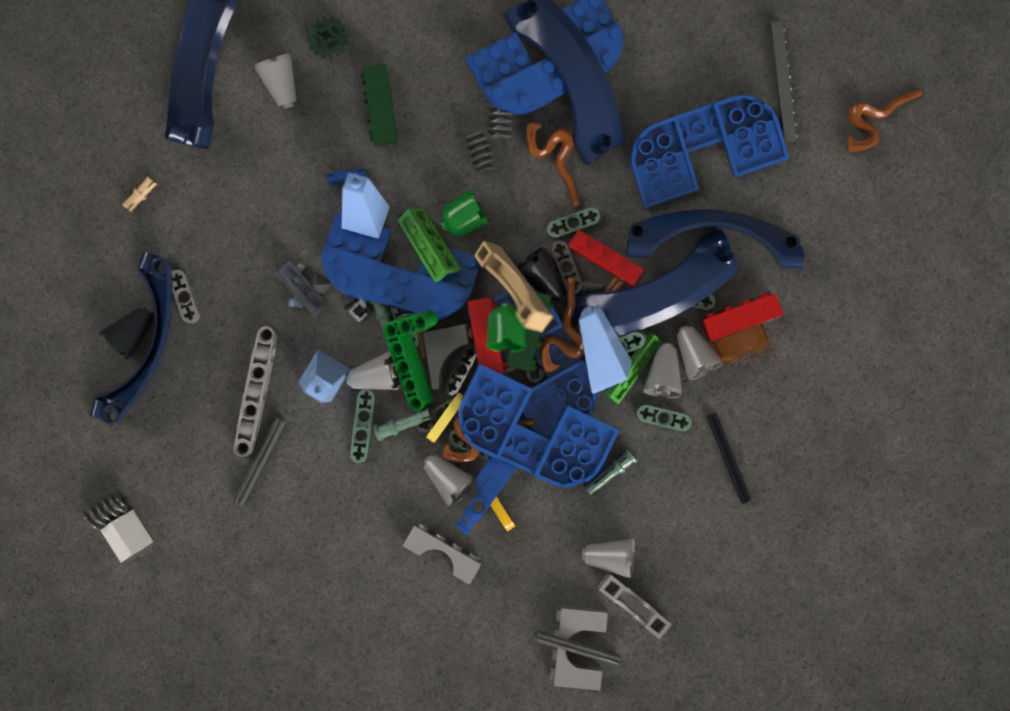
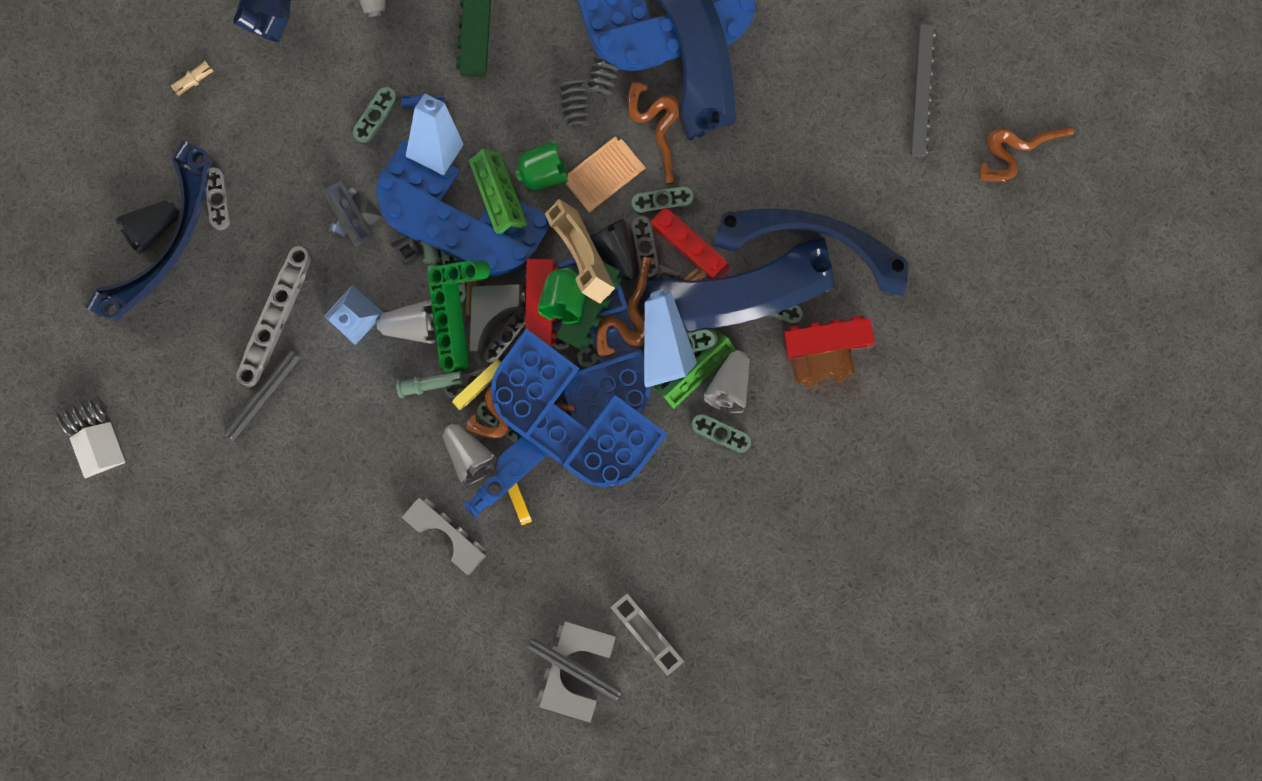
camera: 10 degrees right, 5 degrees down
(296, 206) = (372, 131): none -> sand green beam
(360, 425) = (380, 376): sand green beam -> none
(517, 208) = (604, 173): none -> light nougat window
(611, 556) = (633, 575): light grey cone -> none
(618, 466) = (659, 477): sand green pin -> none
(661, 150) = (774, 141): blue plate -> none
(696, 353) = (770, 368): light grey cone -> none
(728, 458) = (785, 492): black axle -> none

